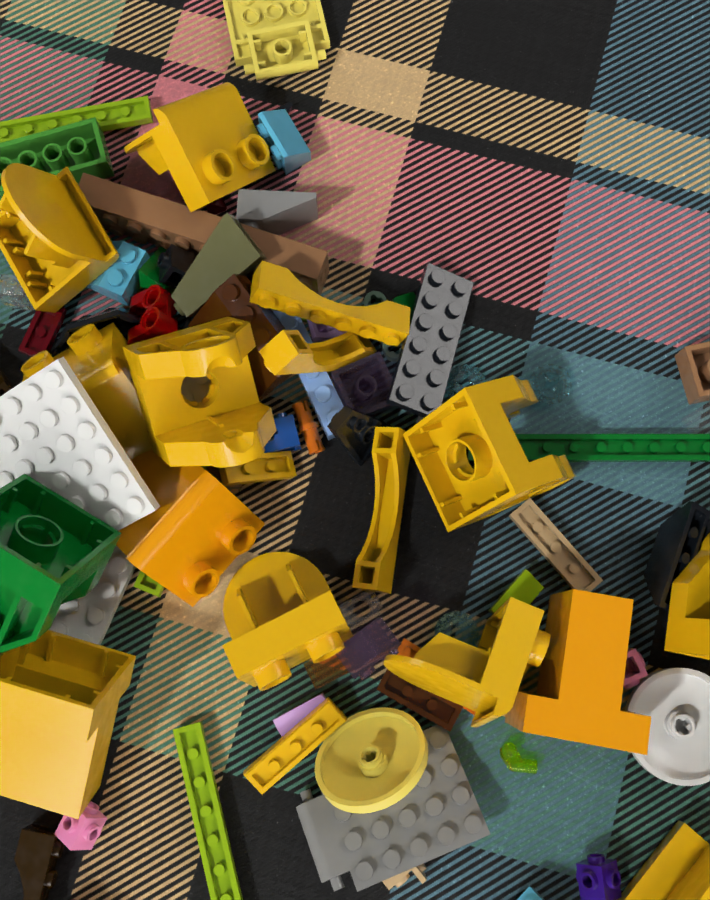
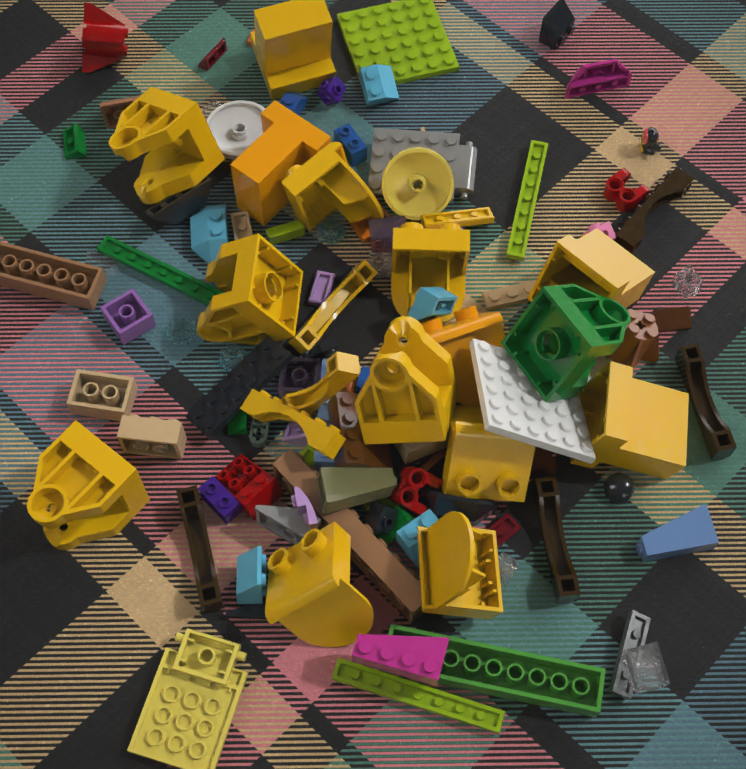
camera: 155 degrees left, 15 degrees down
(72, 124) = (406, 656): none -> dark pink wedge
(159, 672) = (507, 295): none -> tan plate
(249, 562) = (432, 303): none -> medium azure slope
(258, 213) = (304, 507): none -> lavender slope
(353, 239) = (249, 484): none -> red slope
(370, 206) = (220, 500): none -> dark purple hinge
(384, 172) = (200, 549): none -> dark brown arch
(418, 539) = (321, 287): none -> lavender tile
(489, 228) = (152, 436): none -> tan brick
(512, 792) = (353, 146): none -> blue brick
(515, 115) = (86, 488): none -> yellow brick
(580, 249) = (101, 395): none -> tan brick
(608, 540) = (209, 231): none -> medium azure wedge
(624, 360) = (128, 316): none -> medium lavender brick
(639, 821) = (294, 102): none -> blue slope

